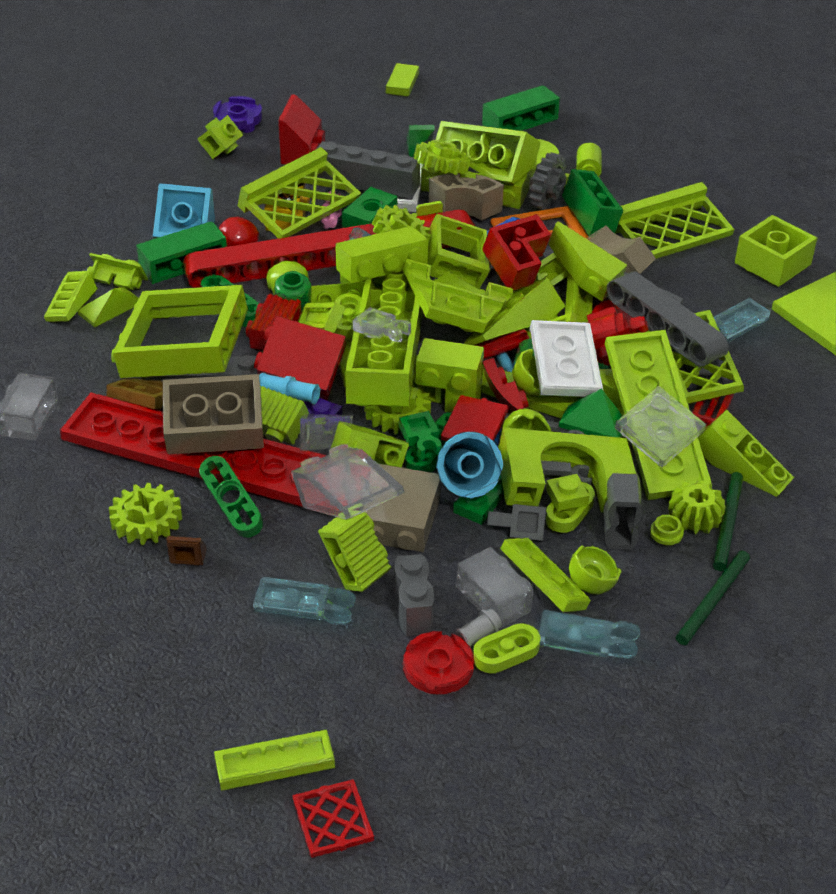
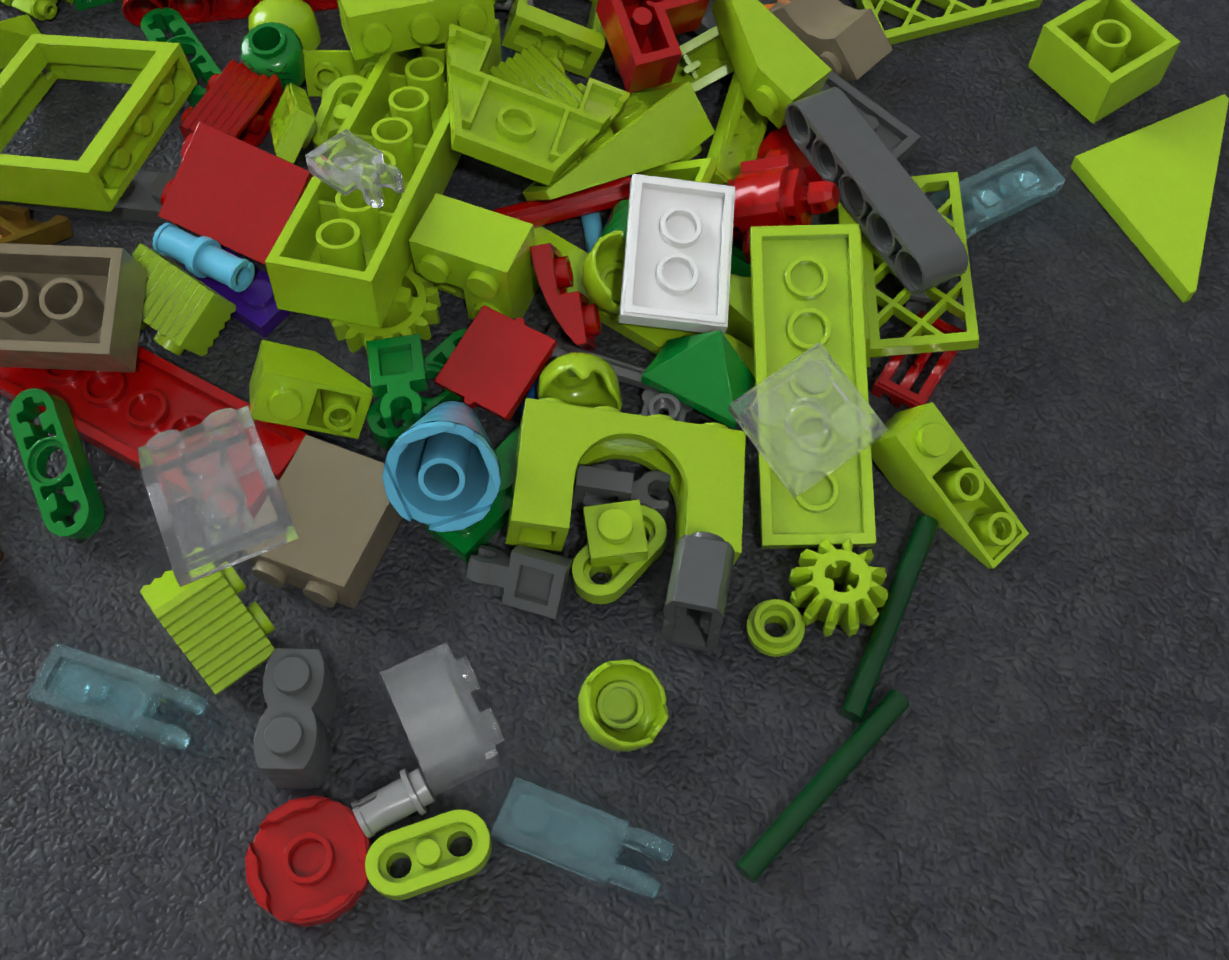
camera: 10 degrees right, 20 degrees up
(319, 430) = (228, 344): clear slope -> none
(545, 574) = (538, 699): lime tile -> none

